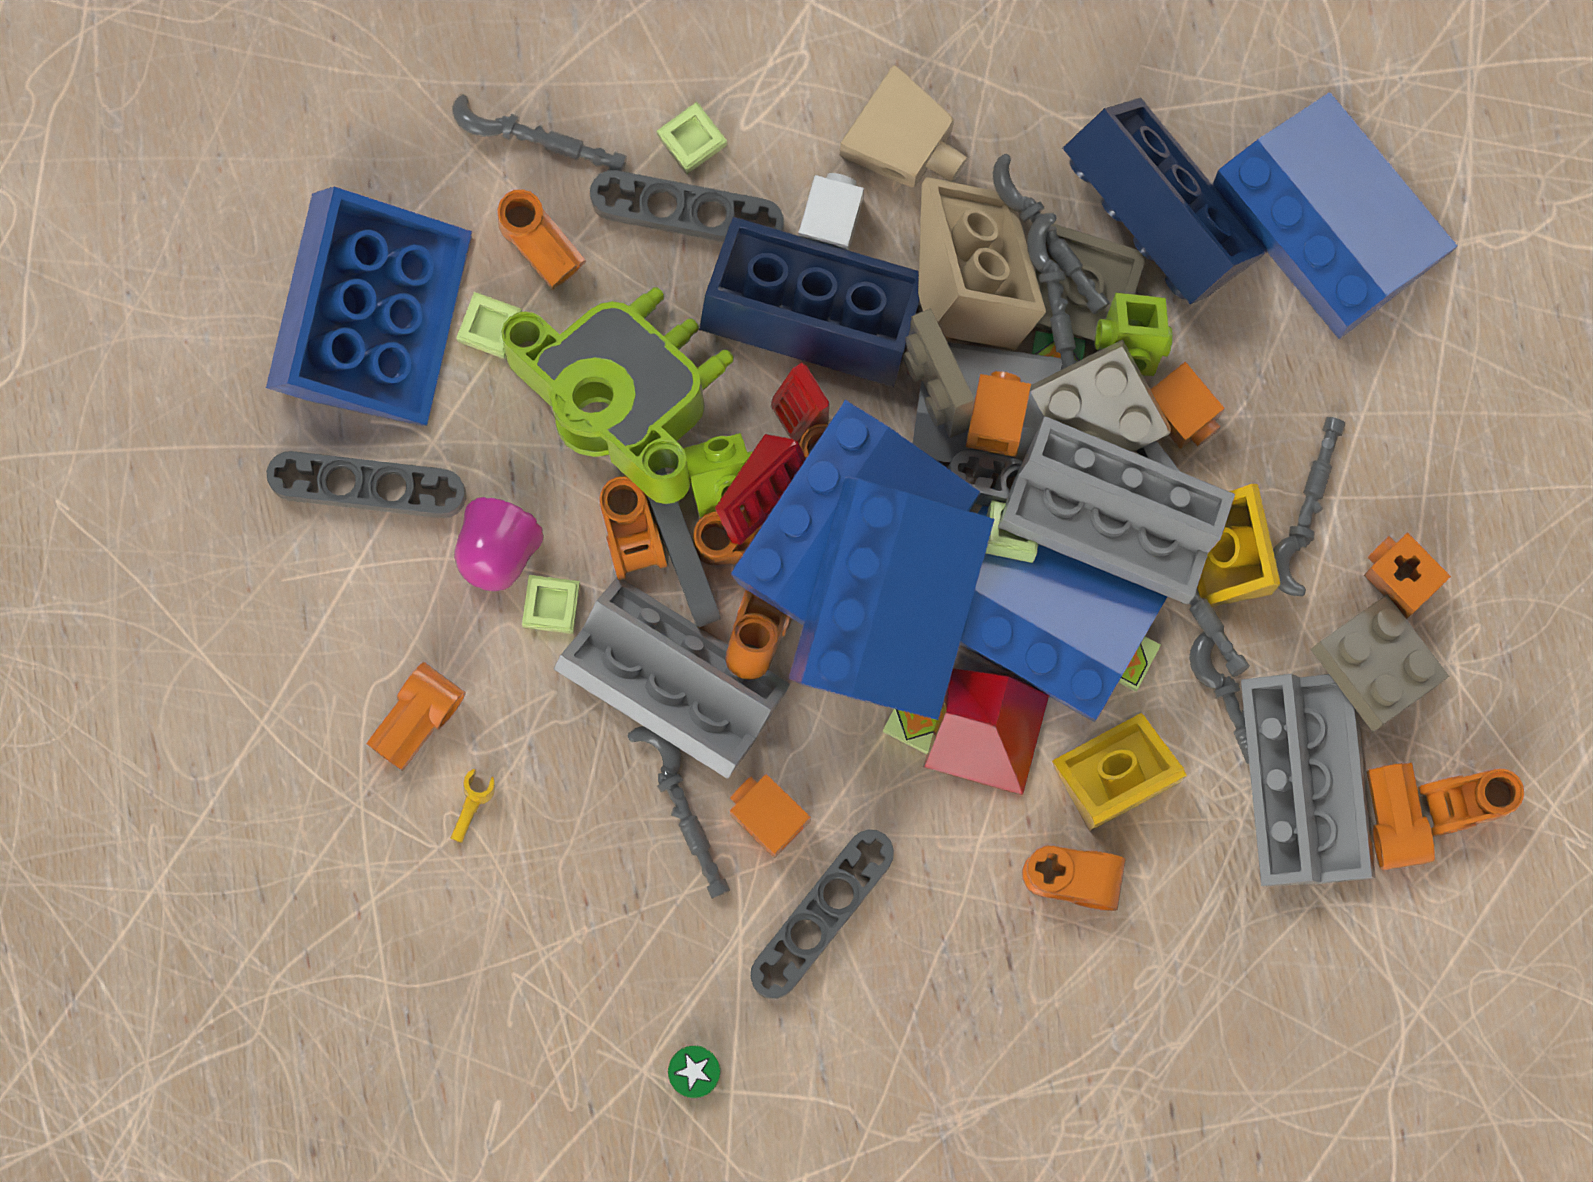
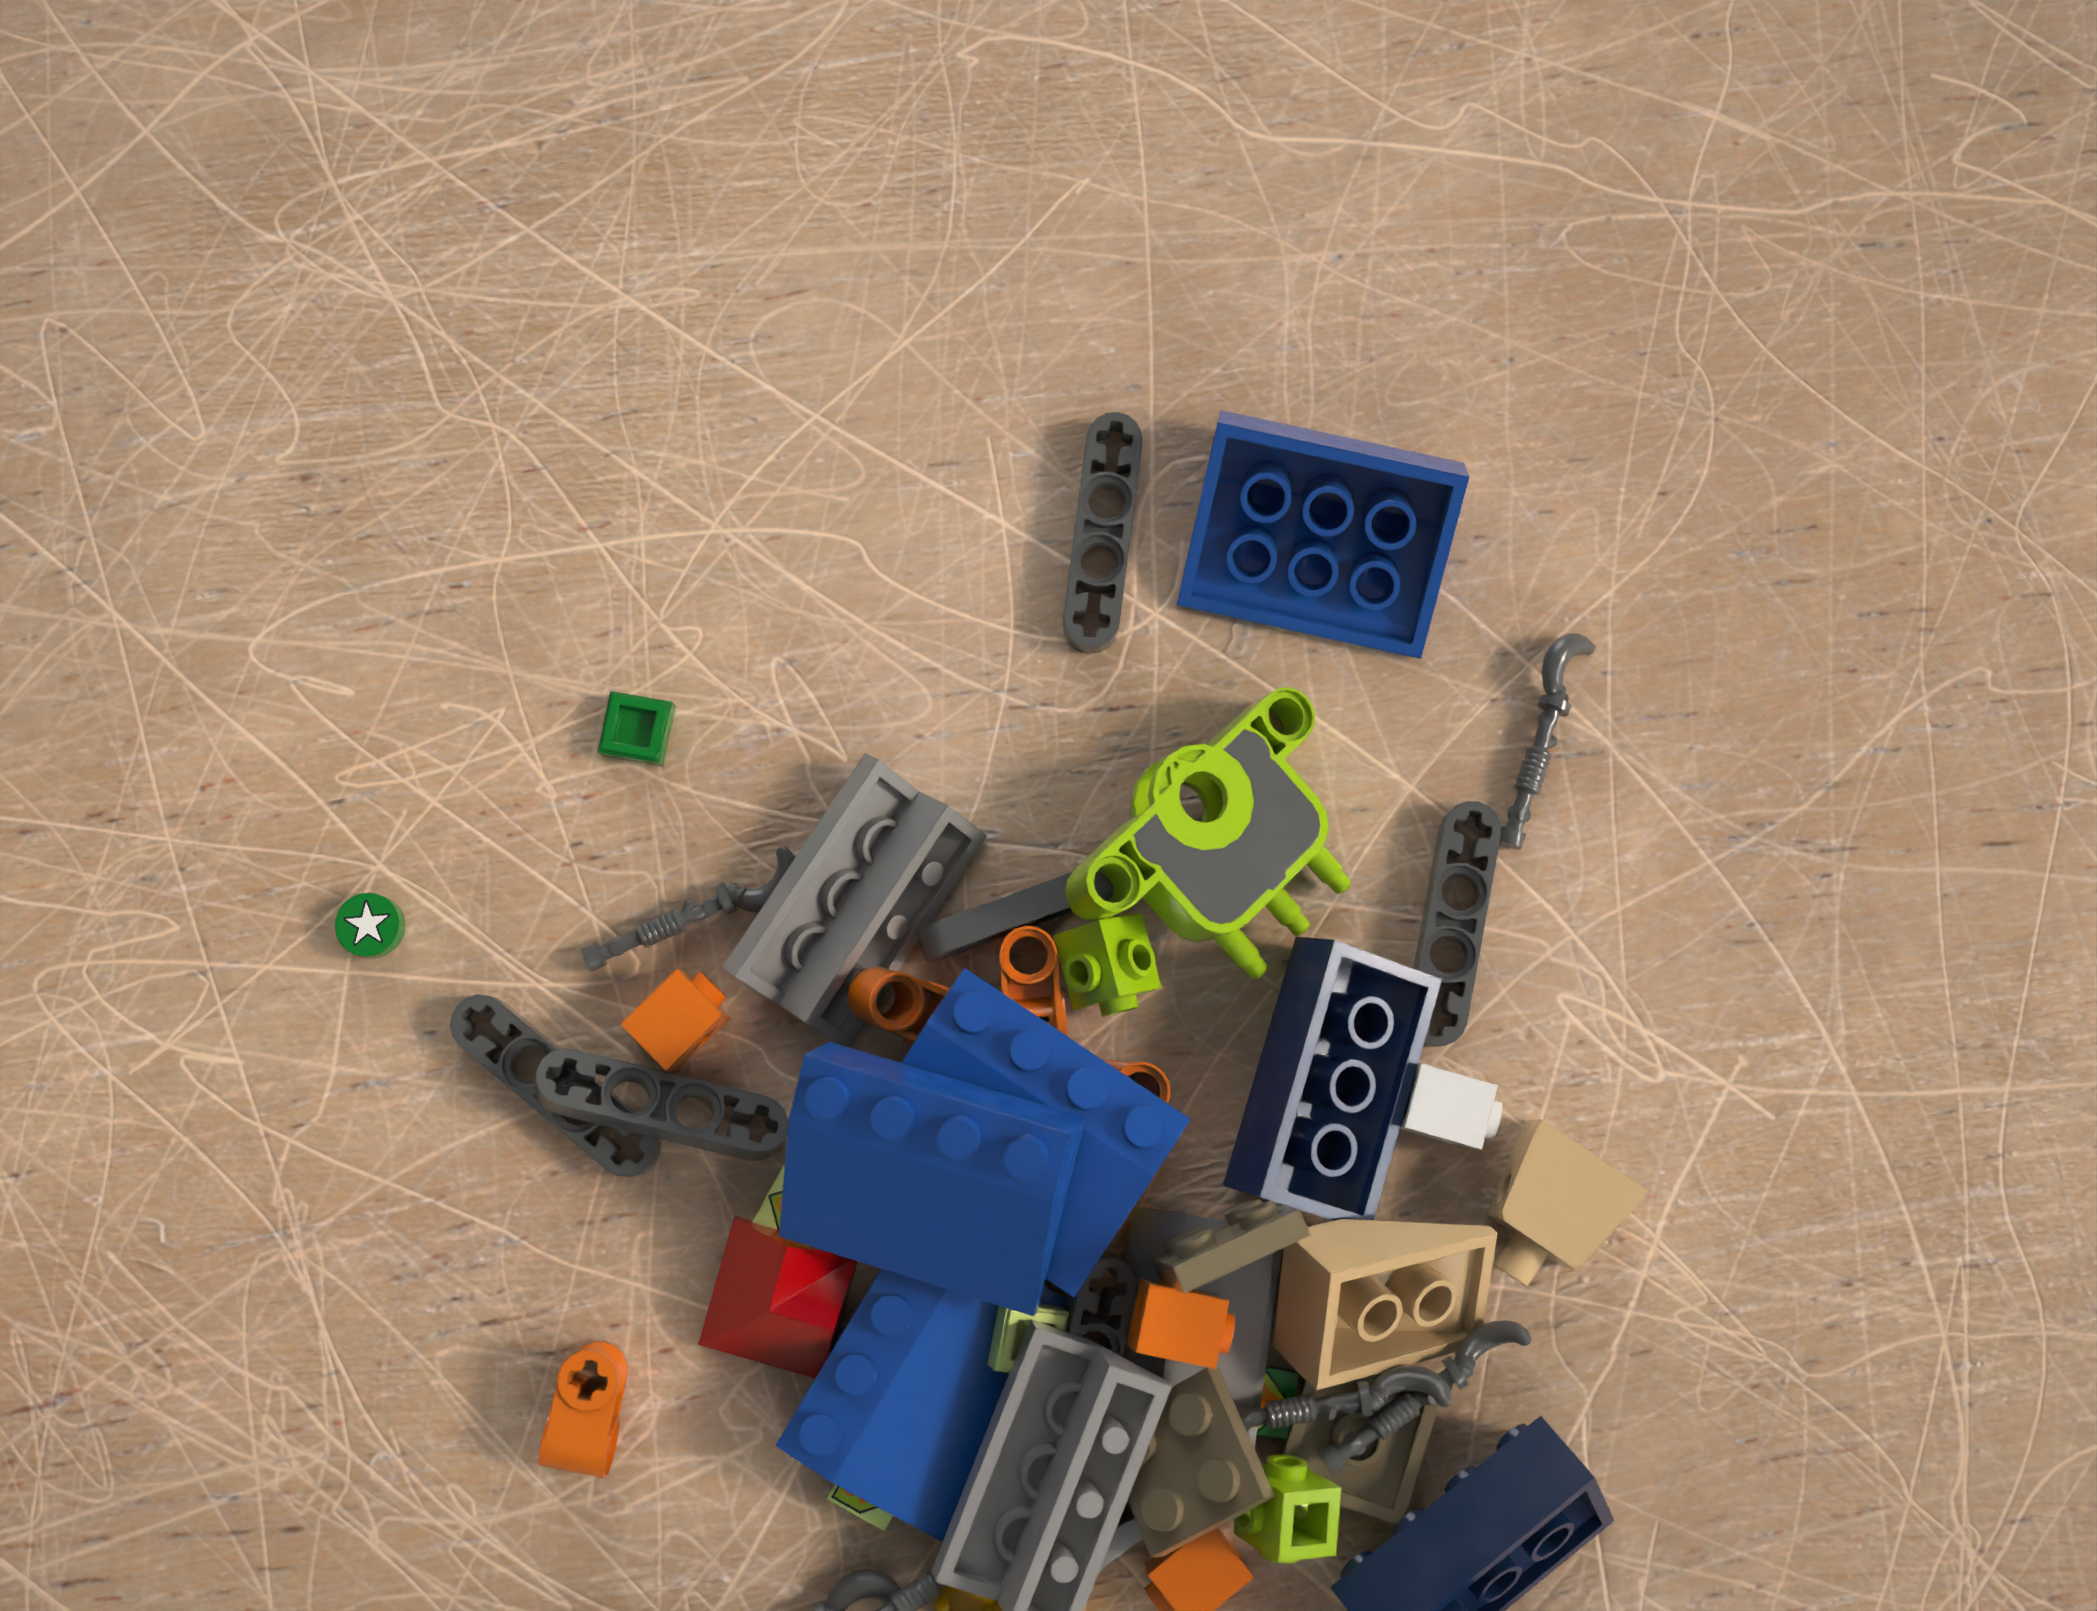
camera: 90 degrees right, 0 degrees up
(423, 704) = (826, 598): orange piece -> none
(471, 805) = (706, 657): yellow hand -> none
(484, 323) = (1307, 671): yellowish green tile -> none
(495, 543) = (1024, 684): dark pink hair -> none
(530, 861) = (636, 728): none -> green tile
(540, 241) = (1408, 739): orange piece -> none
(551, 604) = (952, 754): yellowish green tile -> none
(631, 531) = (1035, 849): orange piece -> none
(691, 138) = (1546, 931): yellowish green tile -> none
(759, 486) = (1085, 1008): red slope -> none
(800, 402) = (1197, 1063): red slope -> none
(844, 824) = (659, 1115): none -> dark grey beam
(1118, 771) = (716, 1473): yellow slope -> none

